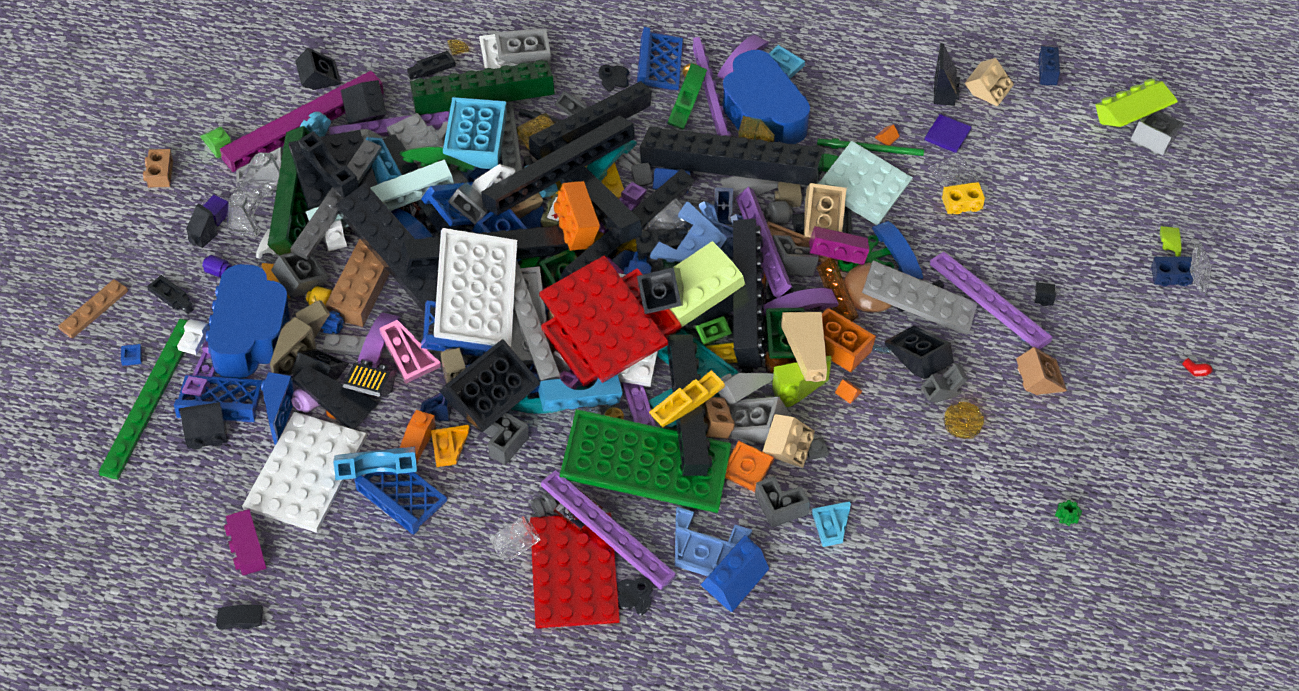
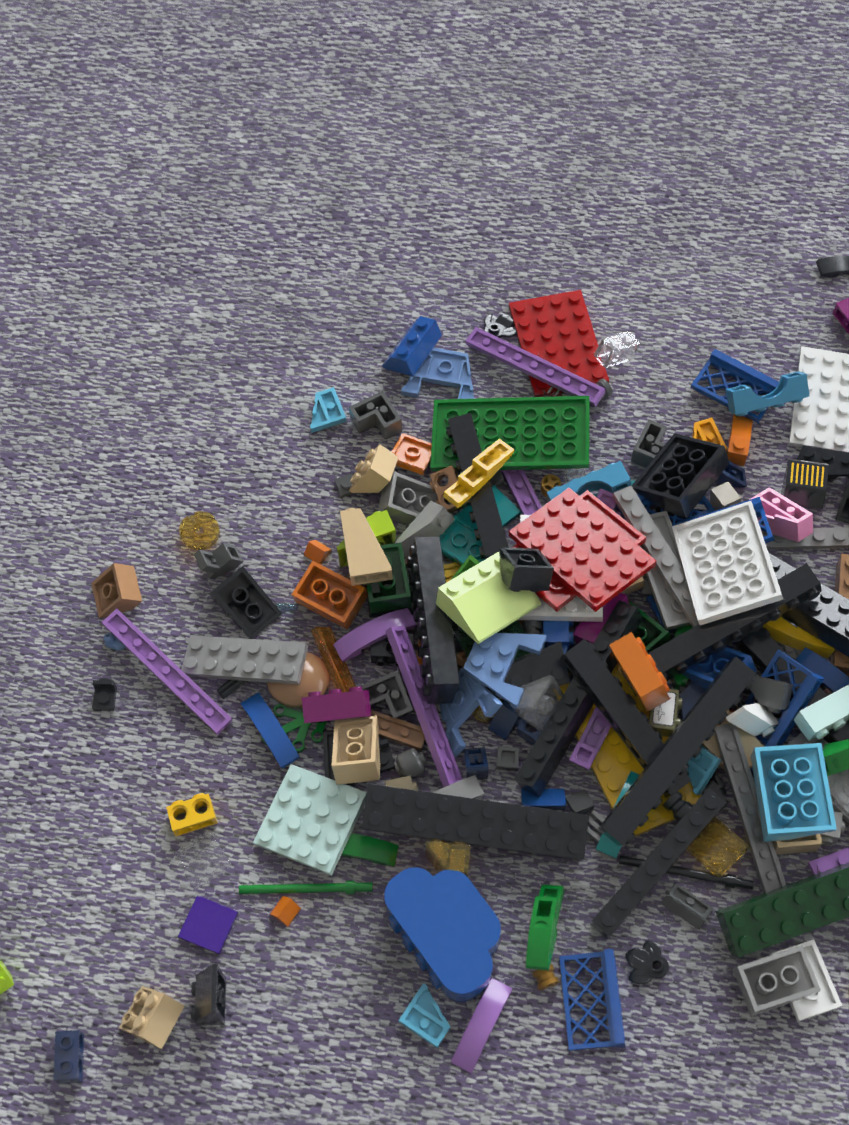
camera: 175 degrees right, 10 degrees up
(374, 342) = (815, 543): medium lavender slope -> none
(710, 89) = (518, 957): medium lavender plate -> none
(1068, 512) = (102, 445): green gear -> none

